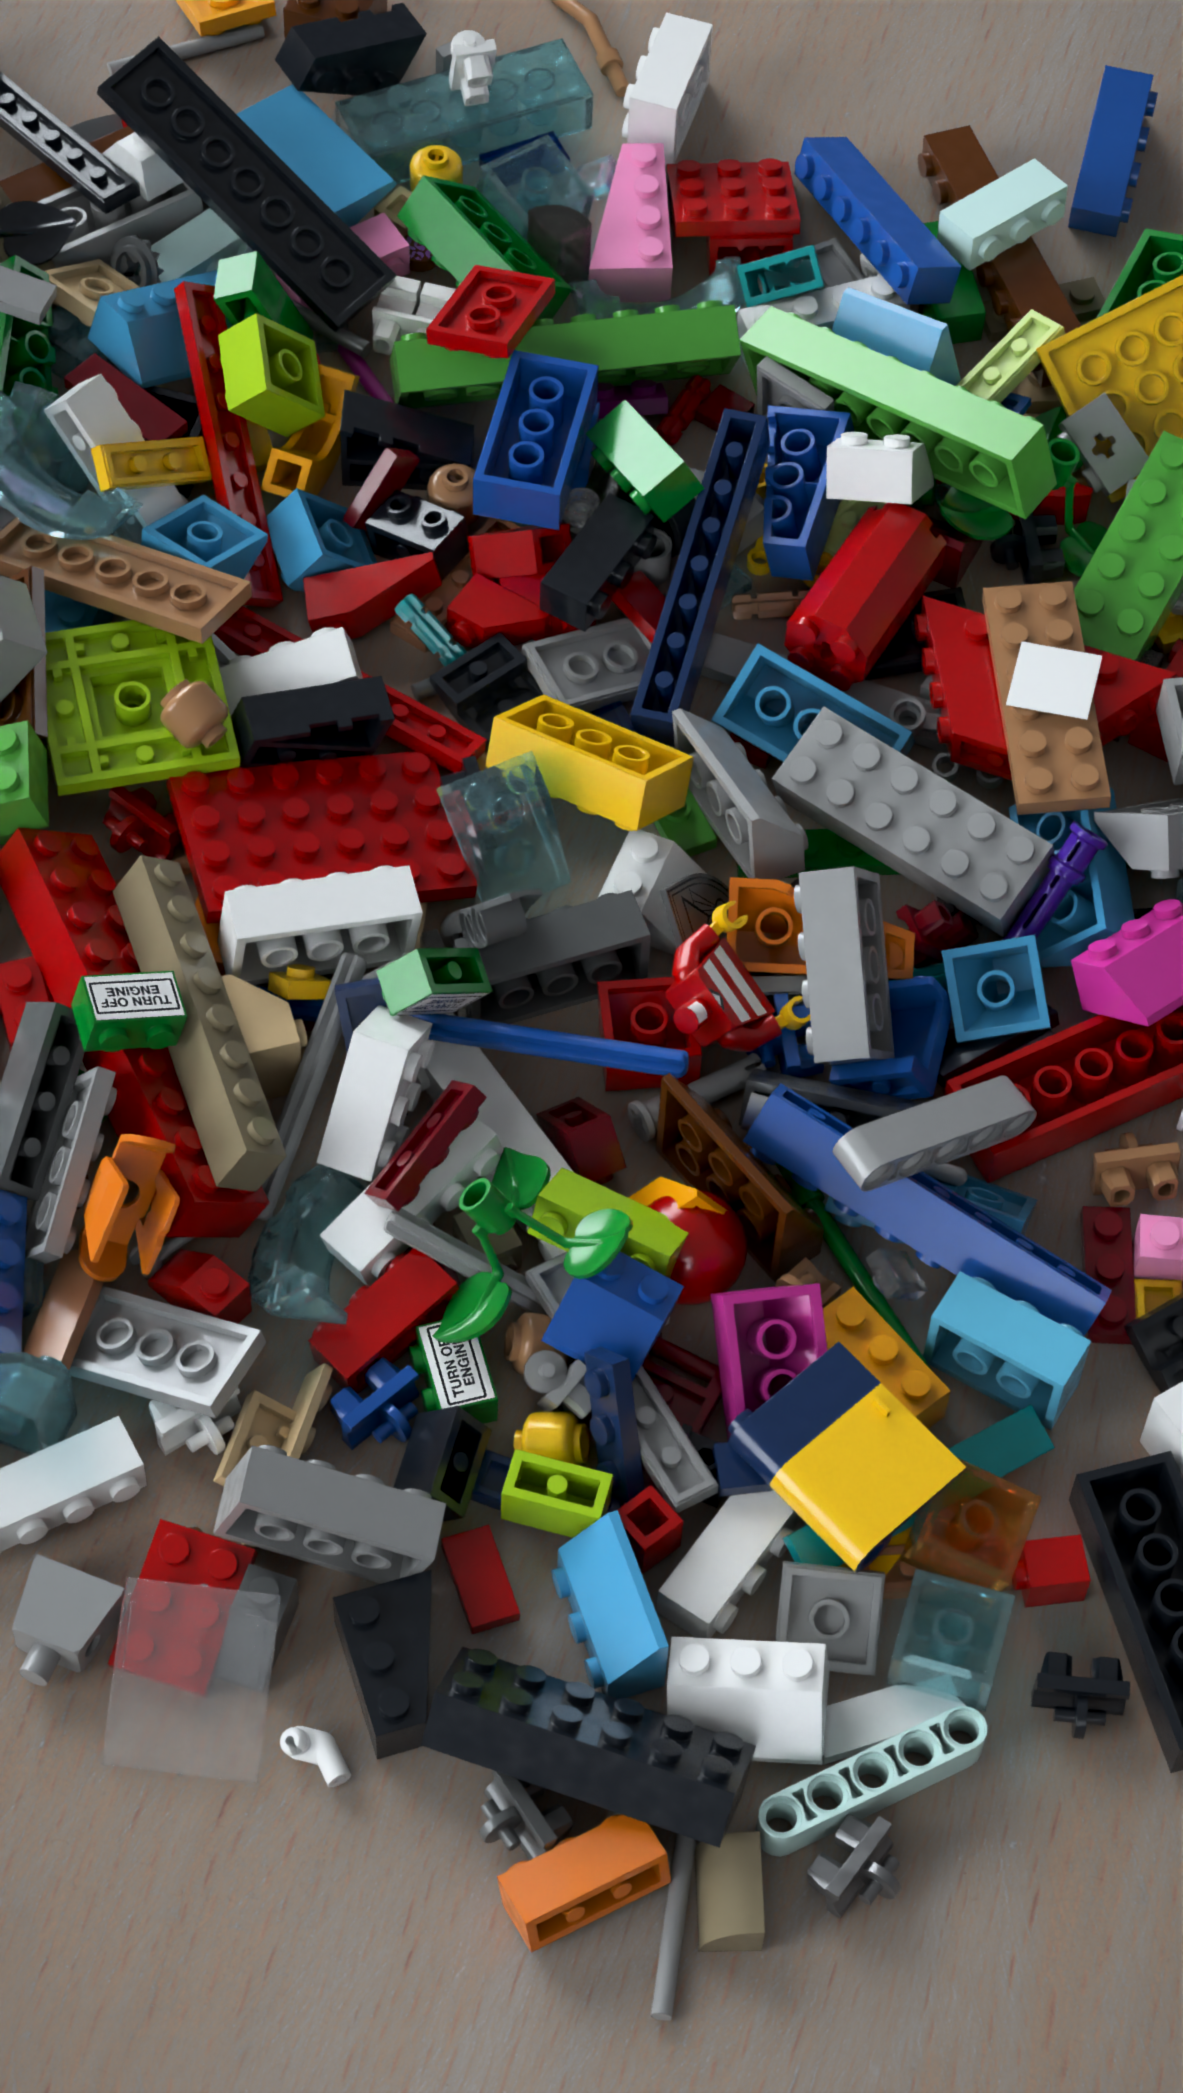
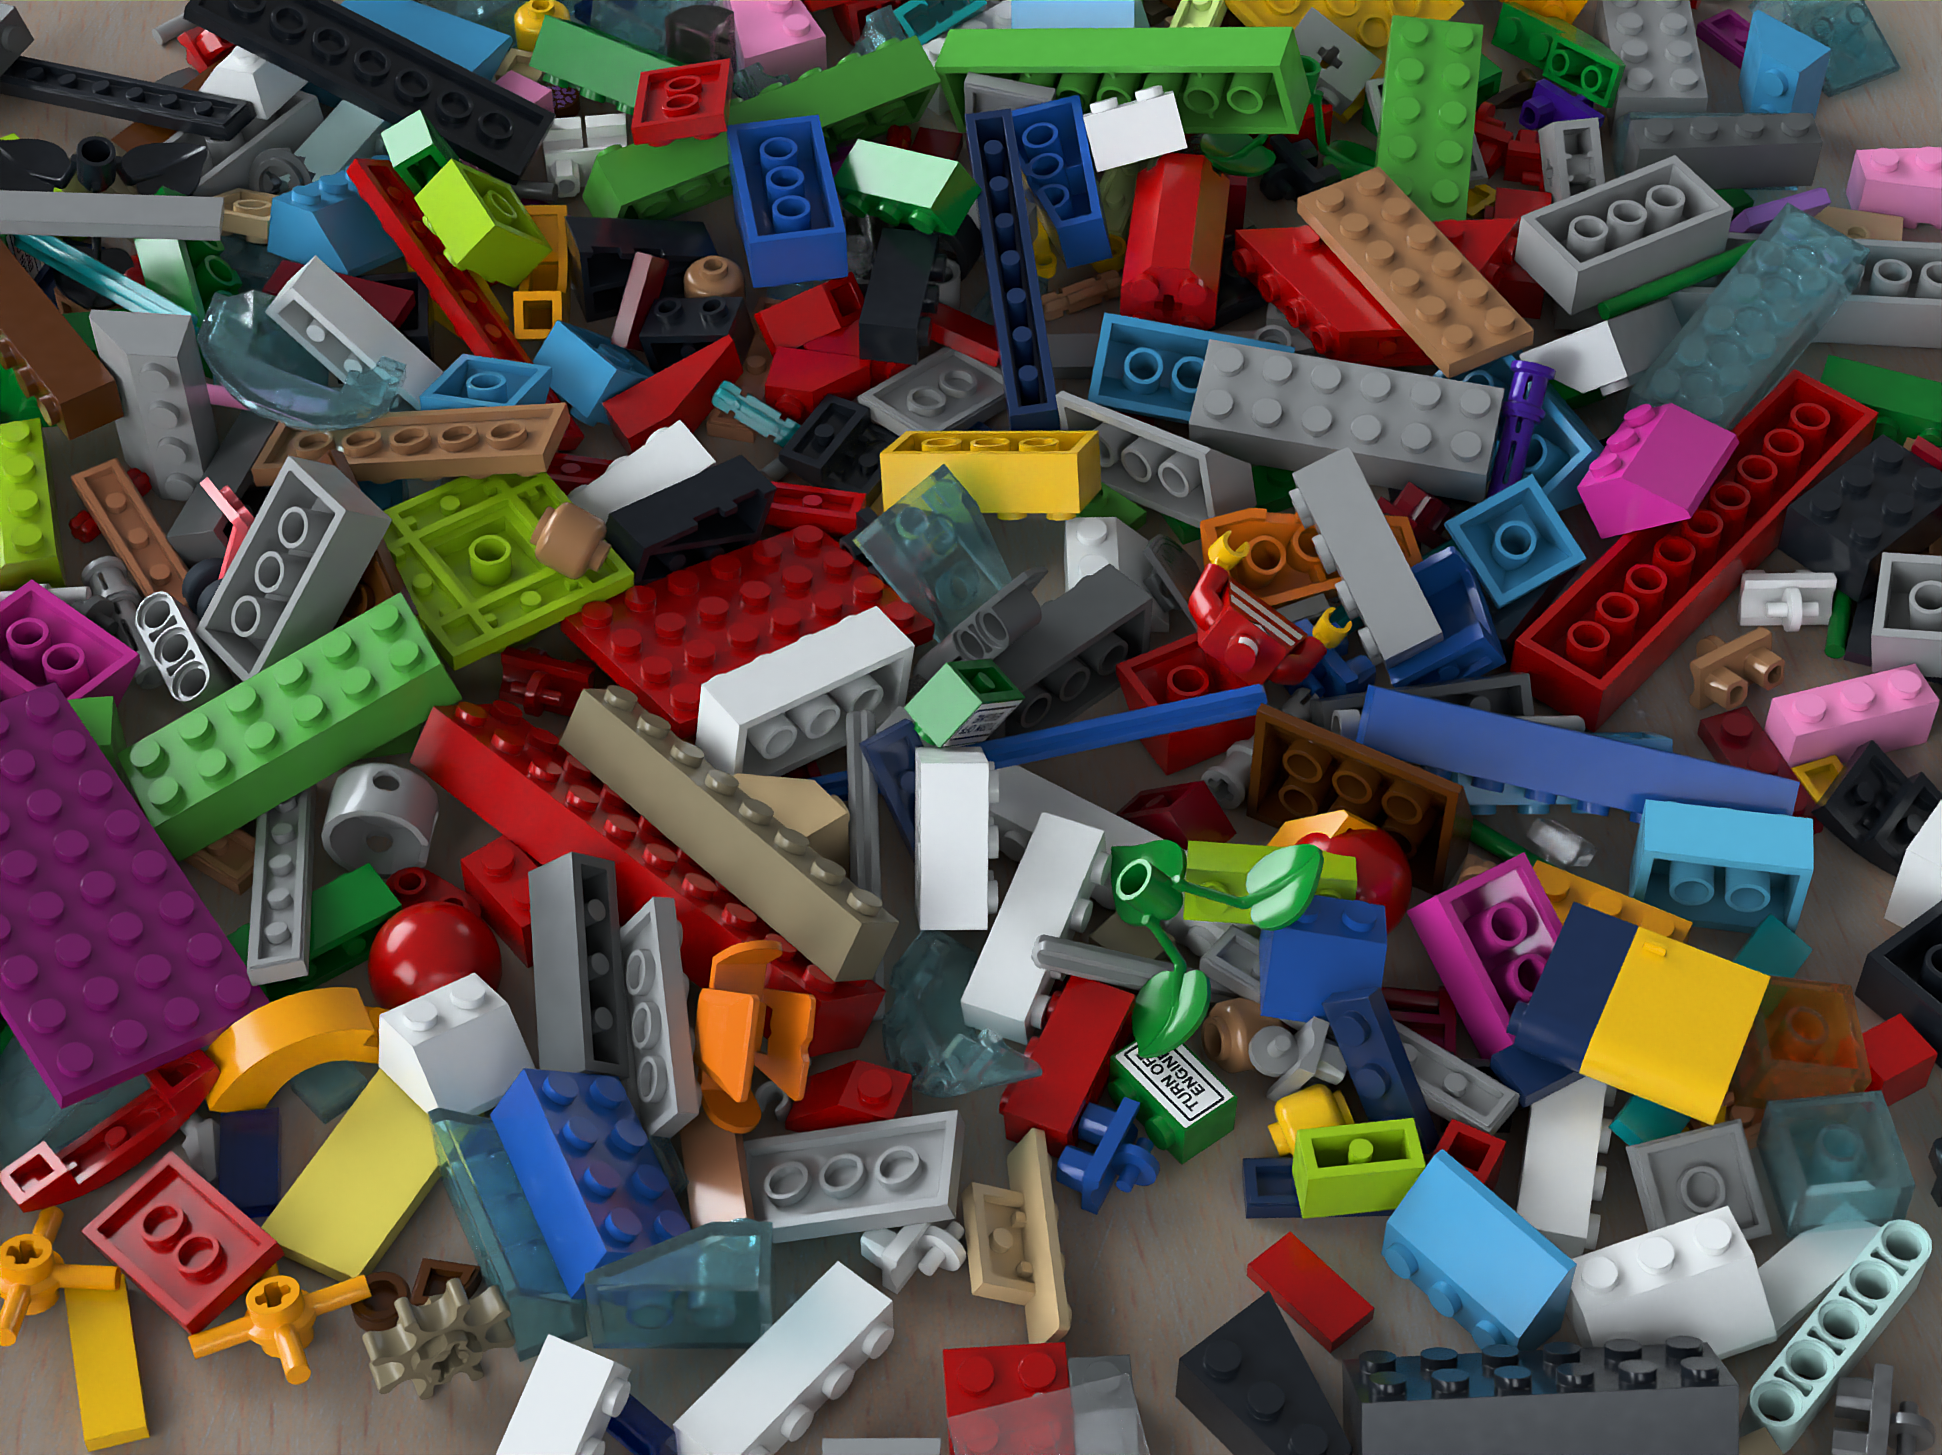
camera: 20 degrees left, 10 degrees down
(128, 1011) = (655, 834): brick -> none
(151, 463) = (399, 334): yellow tile -> none
(298, 983) = (810, 763): yellow plate -> none
(329, 1516) = (1133, 1273): light grey brick -> none
(426, 1146) = (1039, 864): dark red plate -> none
(444, 1457) = (1211, 1187): black brick -> none
(934, 1133) = (1550, 676): light grey beam -> none
(1054, 680) = (1419, 248): white sticker -> none

